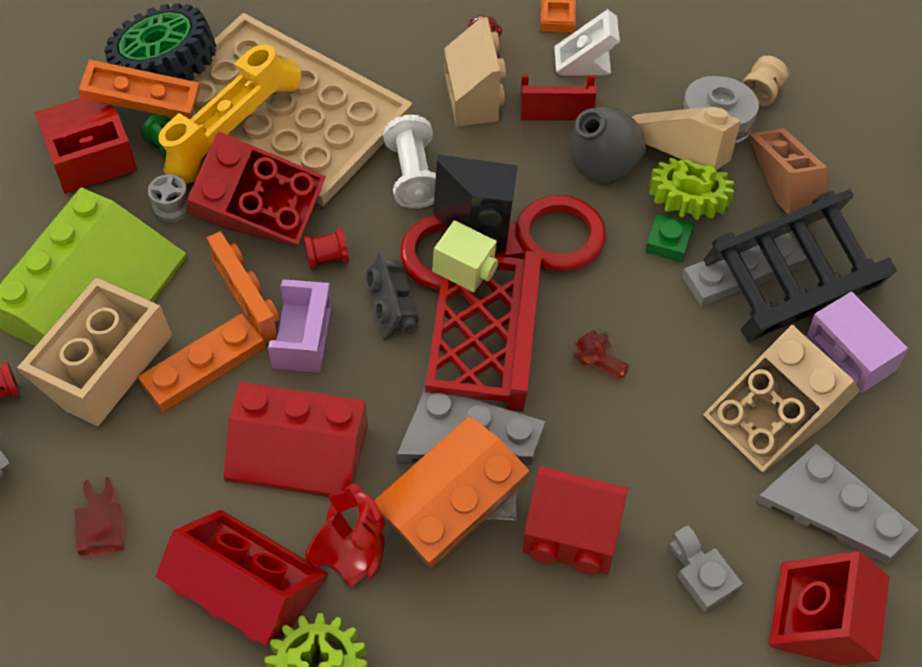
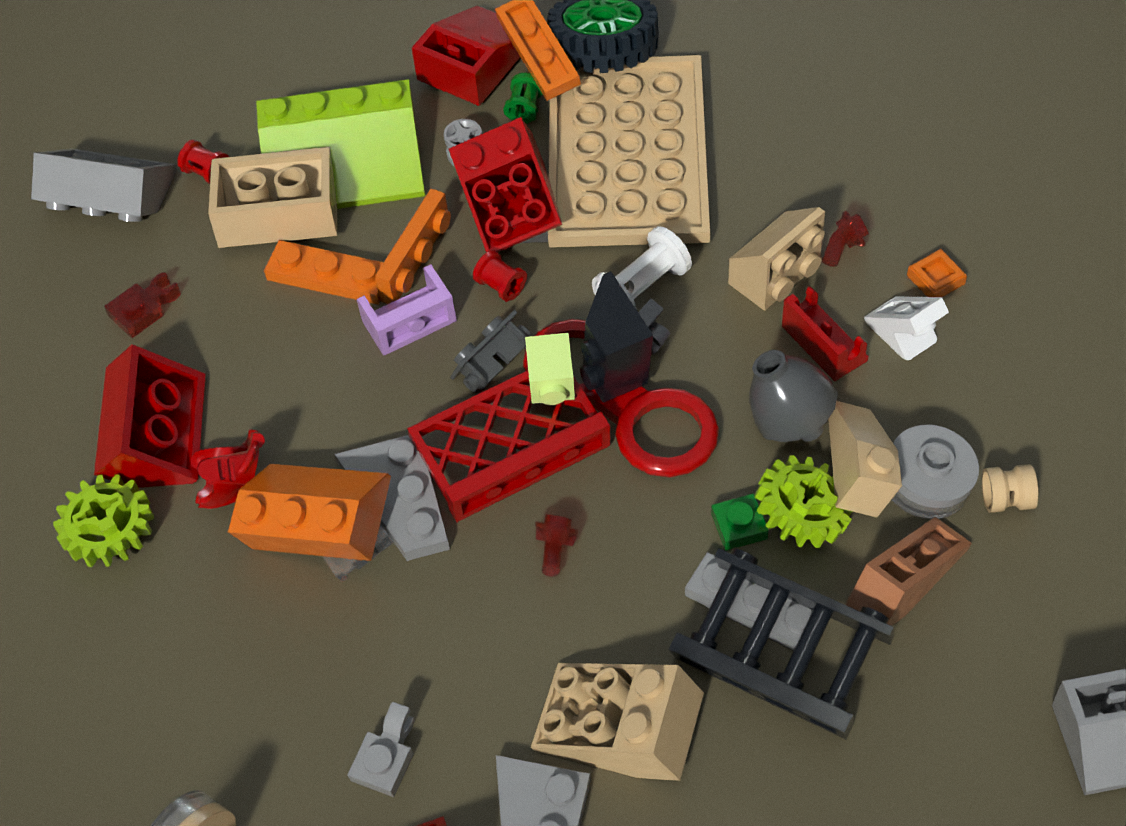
camera: 60 degrees right, 0 degrees up
(259, 77) = (617, 107): yellow plate -> none
(294, 439) = (293, 378): red slope -> none
(574, 520) = (345, 619): red slope -> none
(857, 341) = (735, 746): lavender panel -> none

